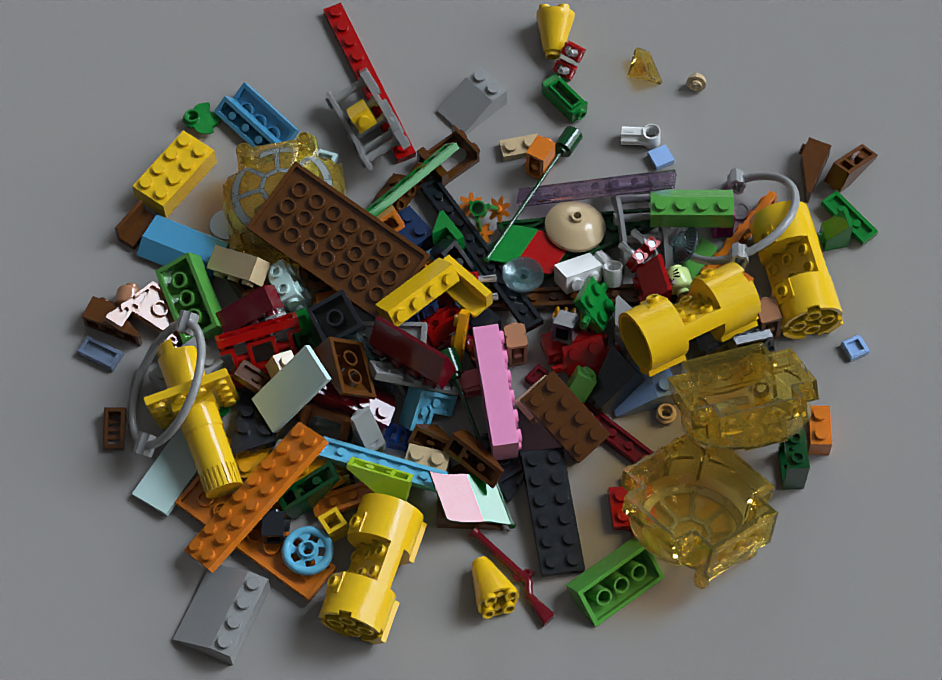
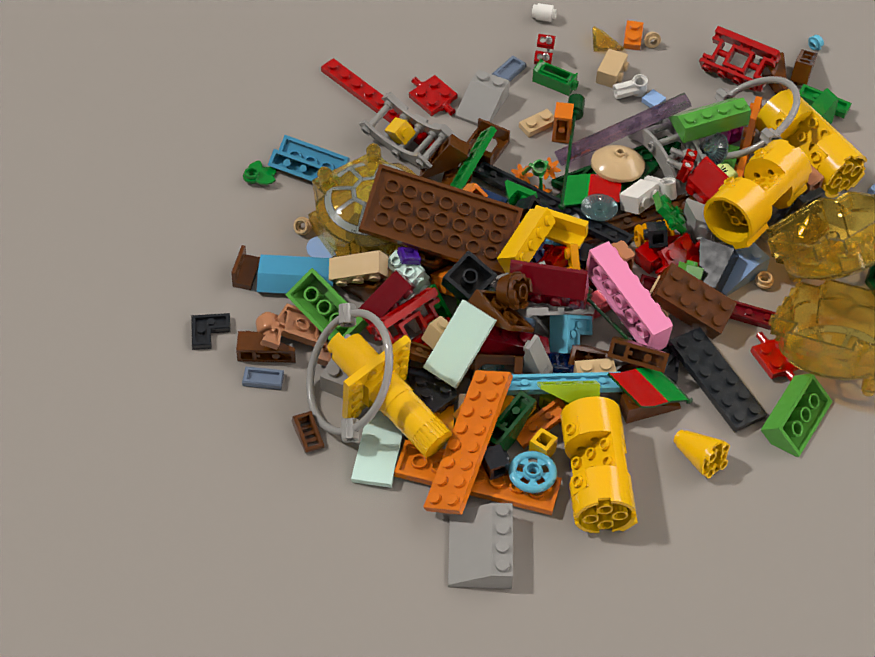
camera: 25 degrees left, 10 degrees down
(67, 277) = (204, 325): none -> black tile
(174, 174) = (259, 219): yellow brick -> none
(214, 194) = (297, 226): none -> tan plate
(289, 271) = (408, 256): none -> dark purple tile
(368, 350) = (513, 290): none -> reddish brown cone
(393, 164) = (447, 157): none -> reddish brown slope
(424, 80) = (433, 95): none -> red plate
(521, 73) = (510, 68): none -> sand blue tile
(543, 613) = (747, 457): dark red piece -> none
(554, 28) = (520, 29): yellow cone -> none
(593, 12) = (544, 12): none -> white brick
(632, 105) = (612, 68): none -> tan brick
(680, 69) = (633, 35): none -> orange plate
(788, 127) = (741, 45): none -> red fence
(881, 141) = (815, 42): none -> medium azure plate

